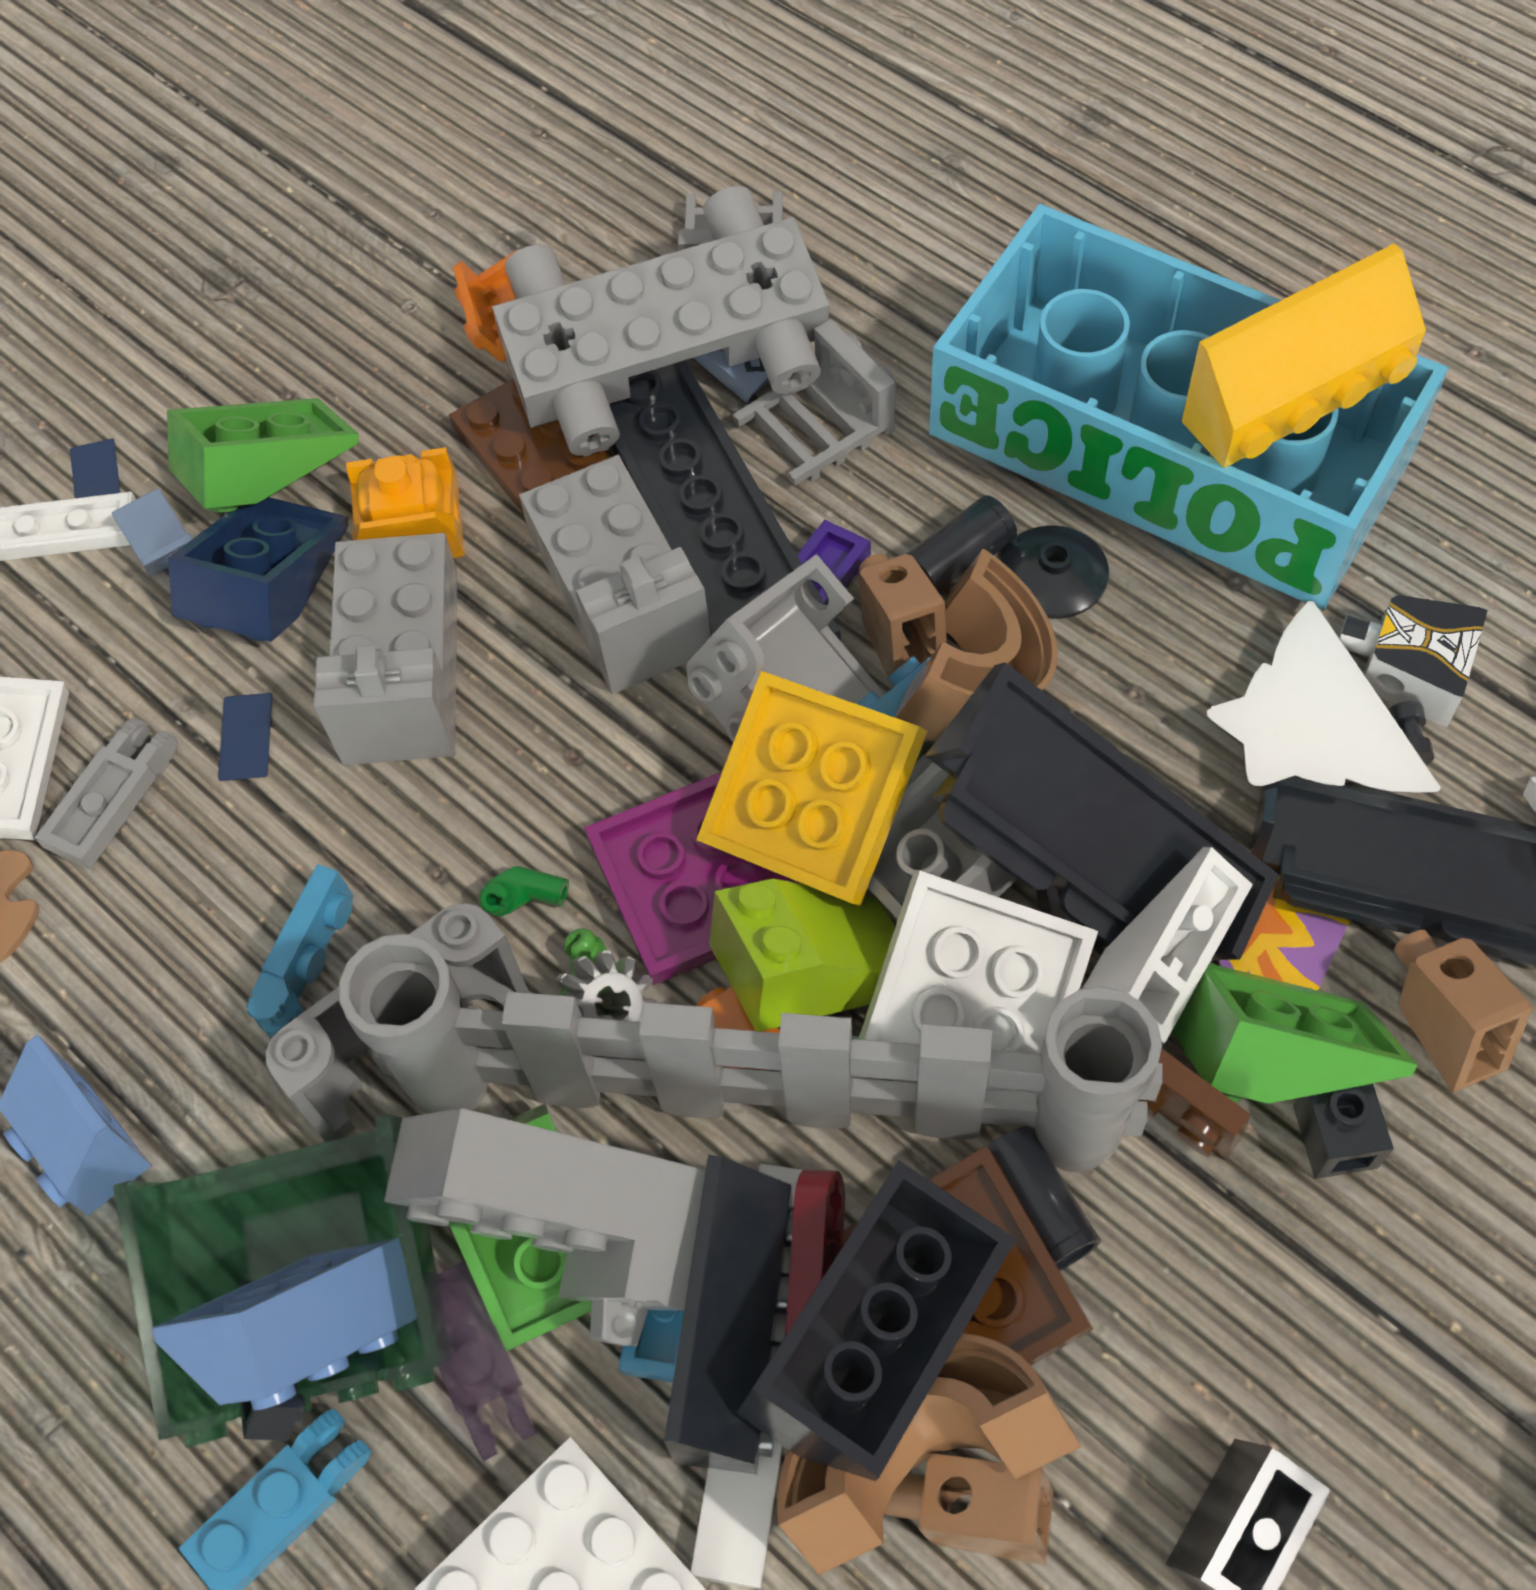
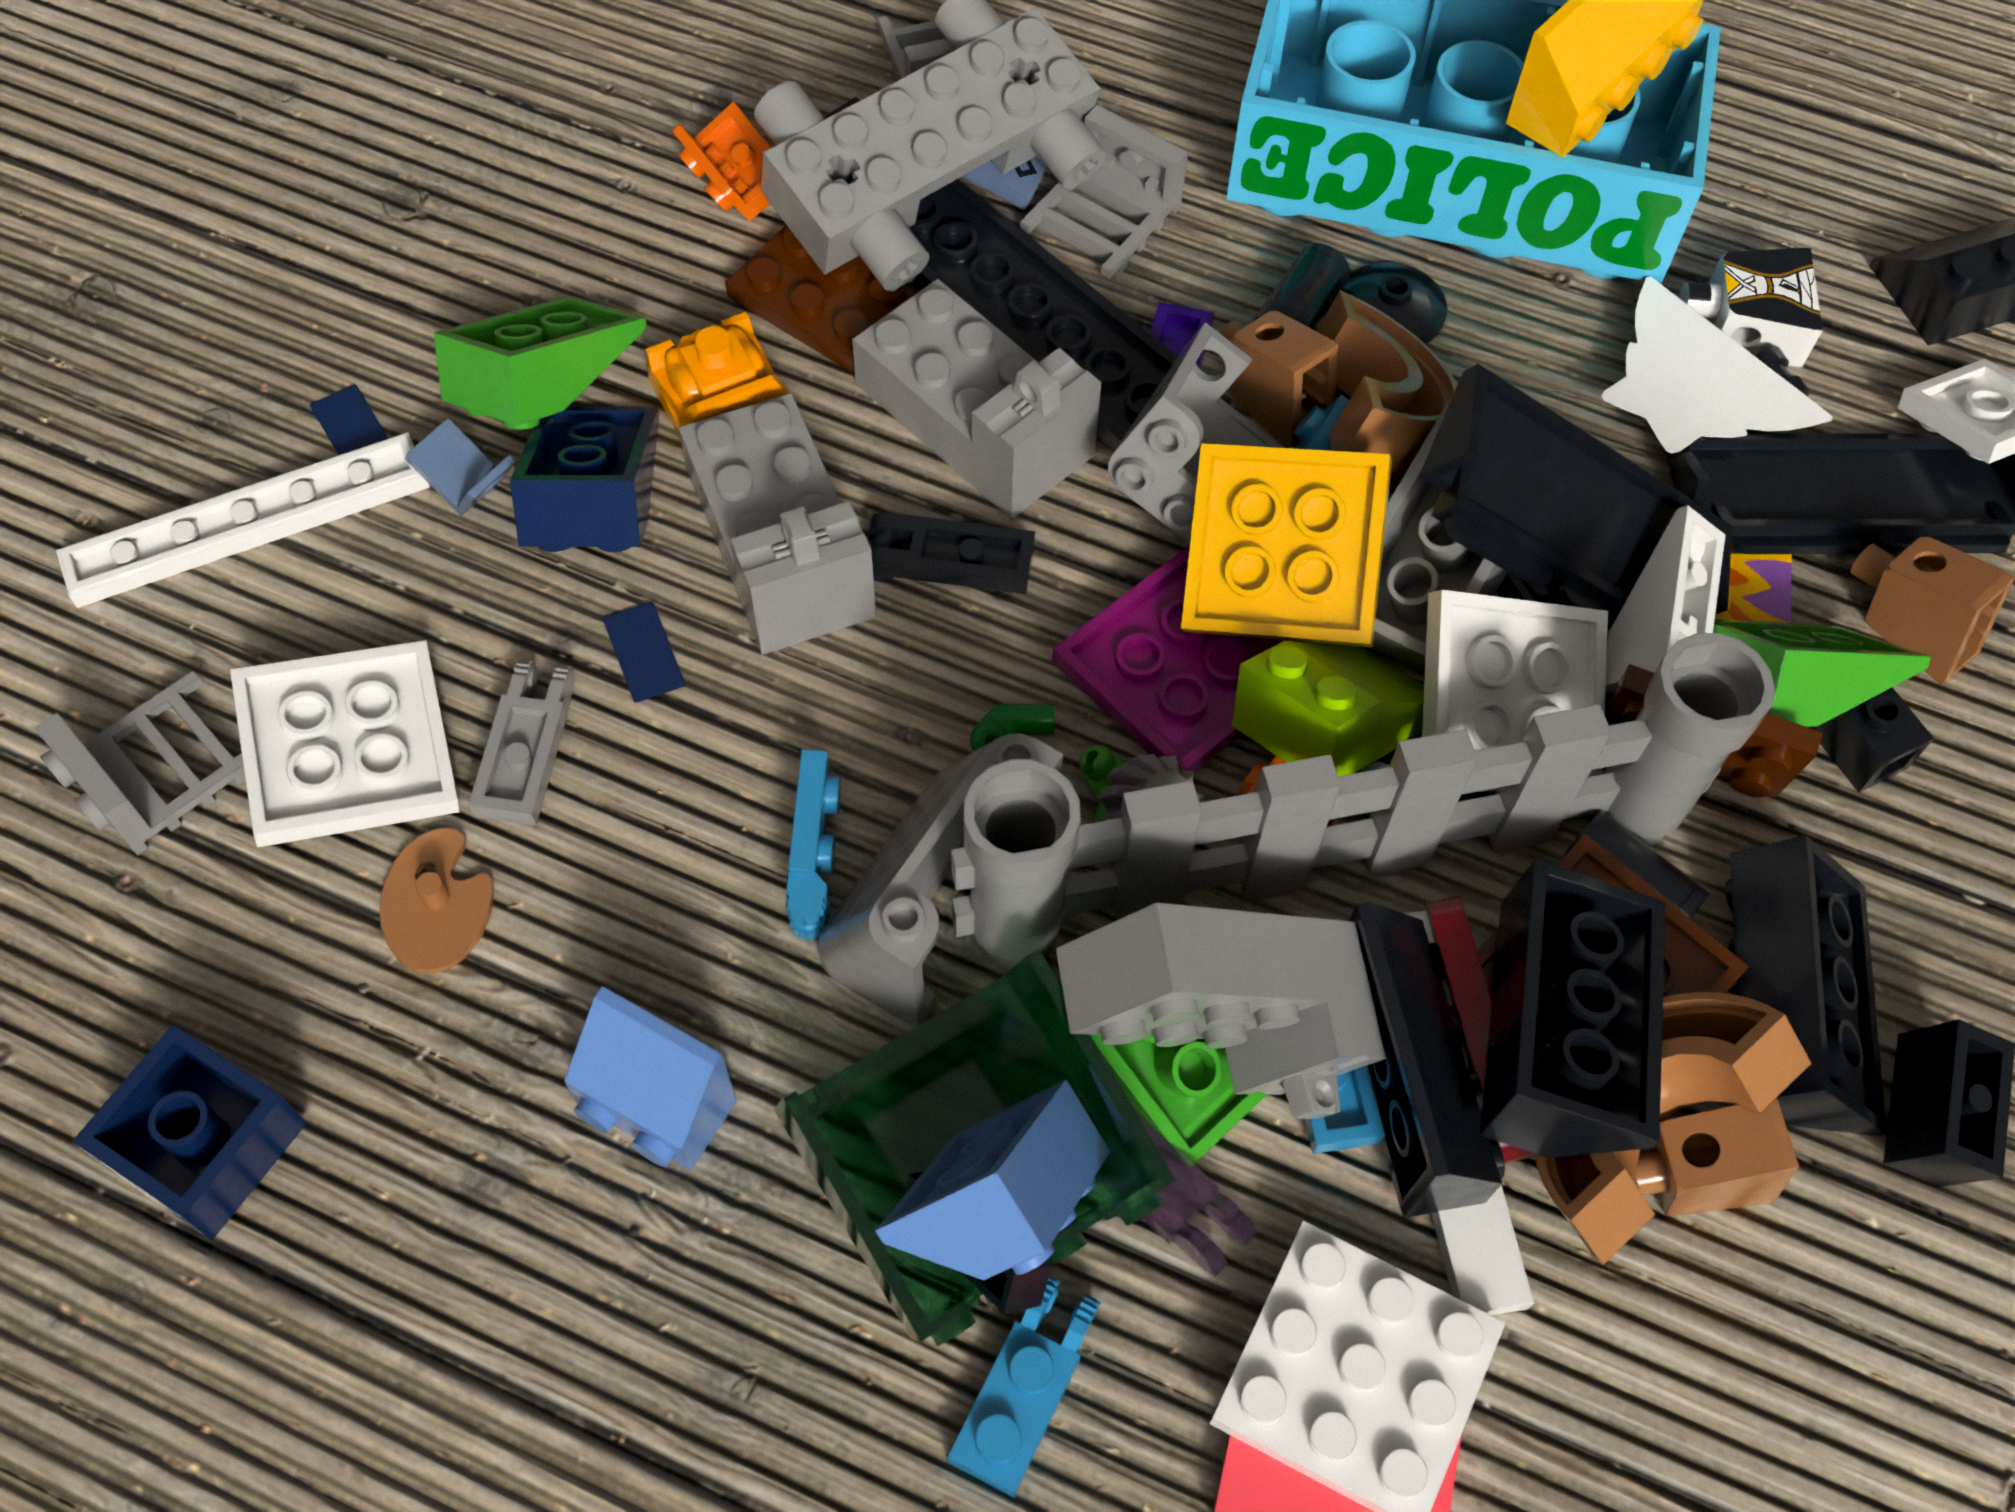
camera: 25 degrees left, 0 degrees up
(537, 713) = (951, 552): none -> black plate
(1163, 1364) = (1810, 957): none -> black slope

